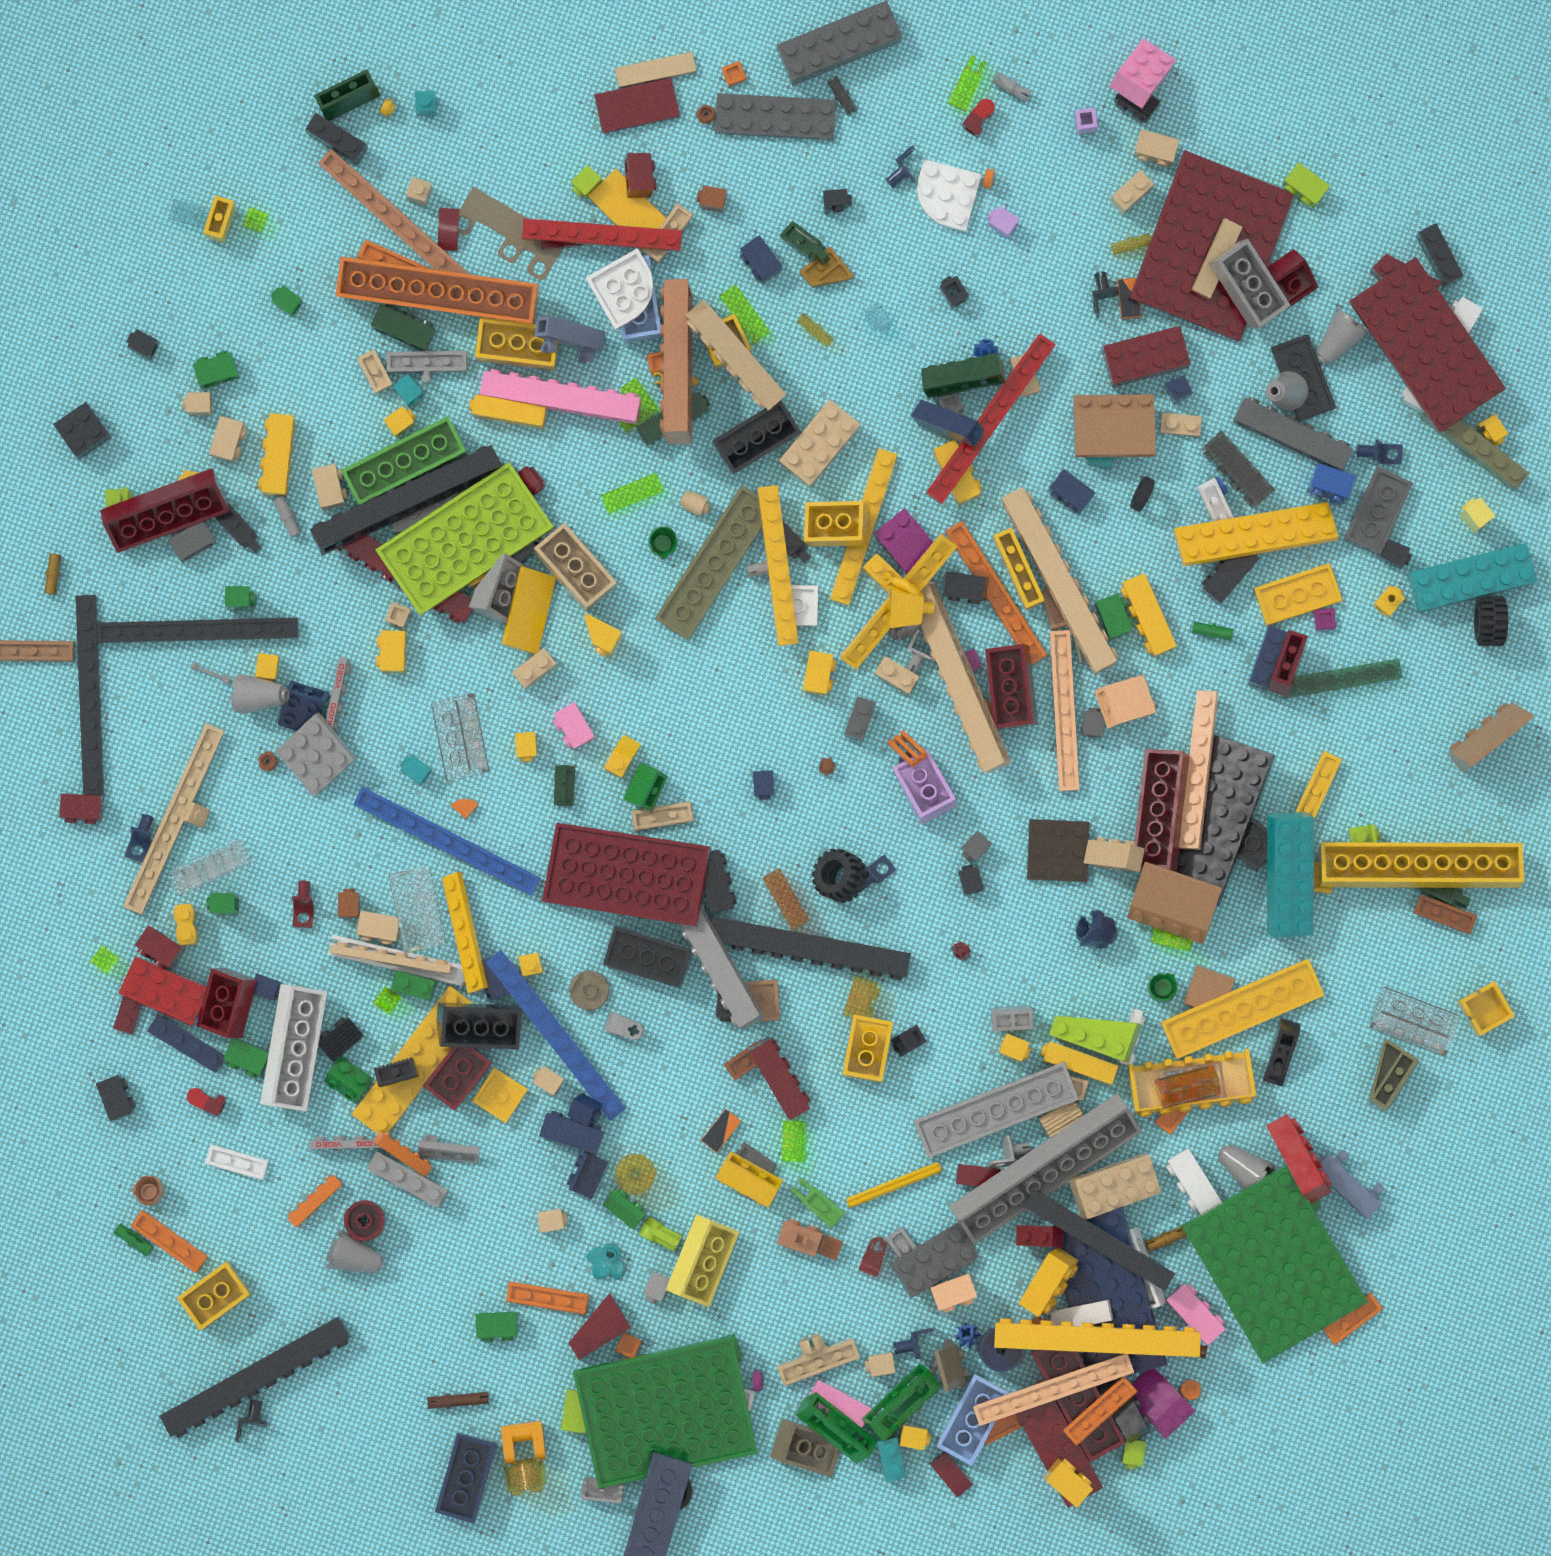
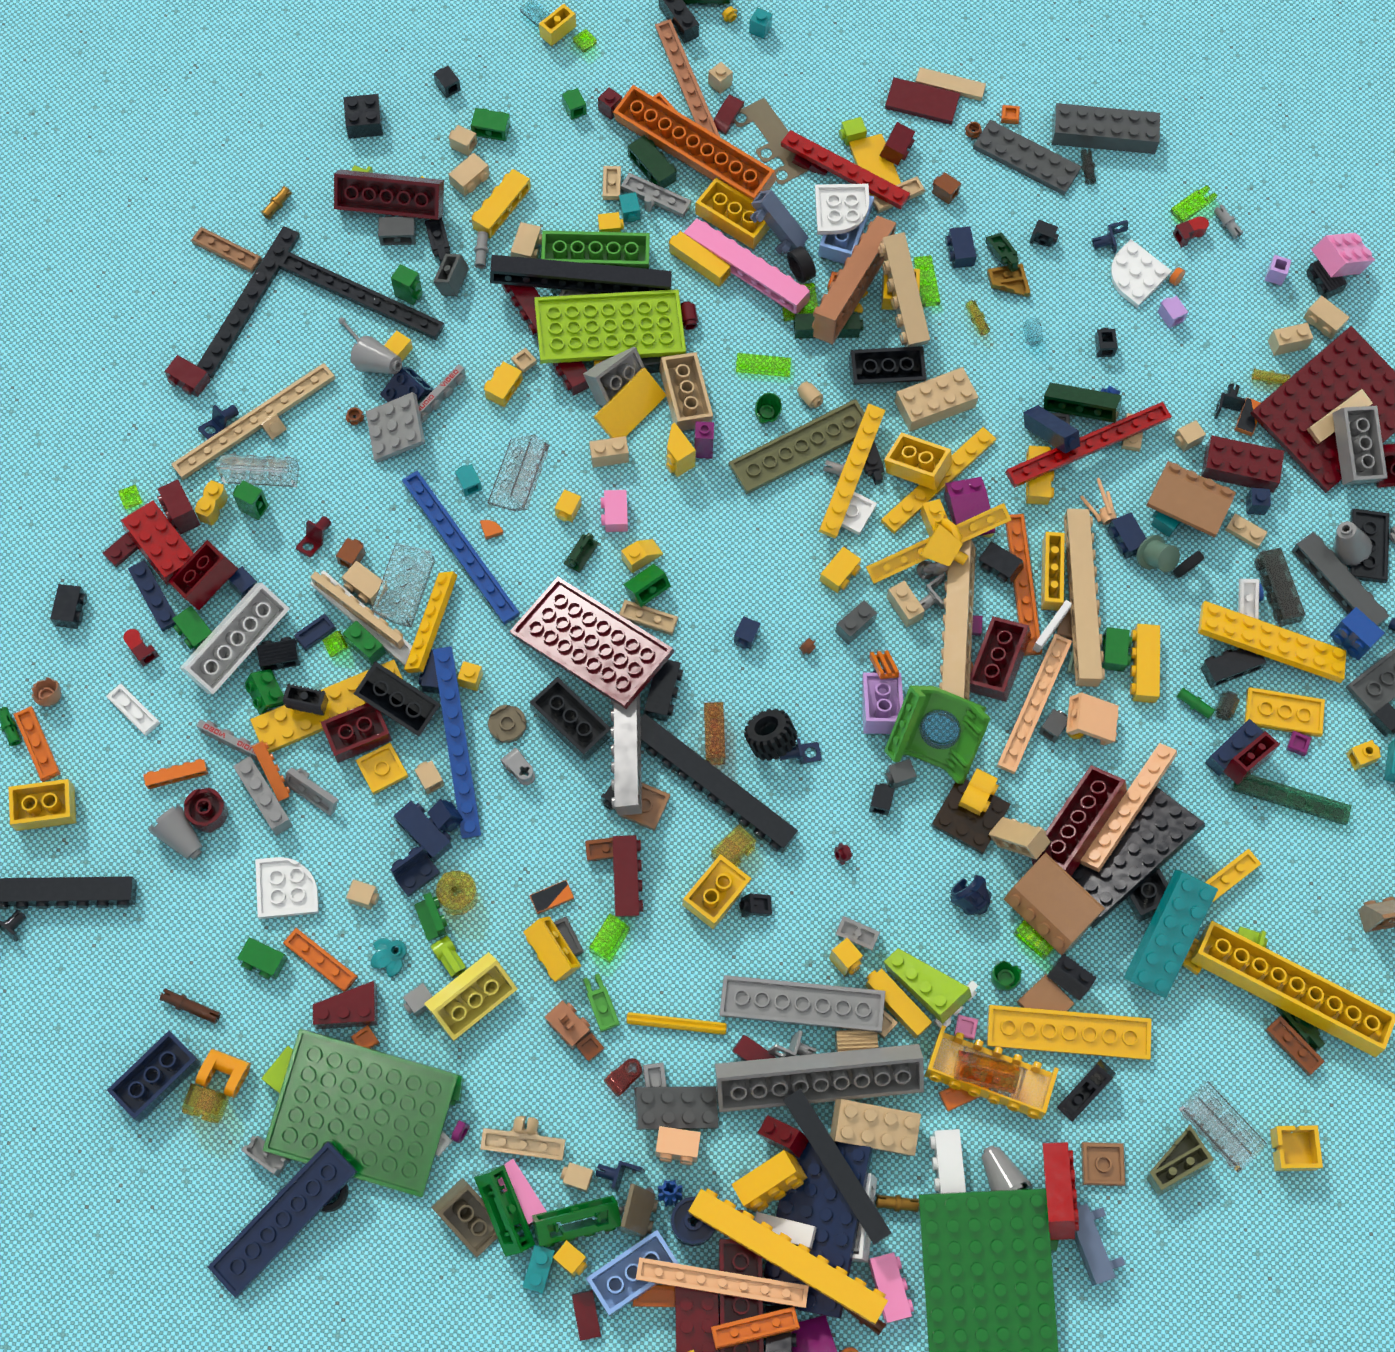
camera: 25 degrees right, 15 degrees down
(275, 563) = (451, 274): none -> dark grey brick
(323, 282) = (608, 102): none -> dark red brick
(359, 997) = (315, 632): none -> dark blue tile
(478, 1252) = (284, 888): none -> white plate
(614, 367) = (801, 264): none -> black tyre
(621, 611) = (704, 439): none -> magenta window
(991, 791) = (938, 730): none -> bright green panel
(1041, 477) = (1106, 513): none -> light nougat plant
(1045, 624) = (1054, 623): none -> white tile
(1055, 829) = (978, 791): none -> yellow brick
(1081, 353) = (1189, 436): none -> tan brick
(1107, 500) = (1156, 554): none -> sand green piece
(1149, 1051) = (966, 1026): none -> bright pink tile
(1221, 958) = (1071, 977): none -> black brick
(1242, 618) = (1227, 706): none -> clear smoke brick
(1326, 1109) = (1103, 1164): none -> medium nougat tile

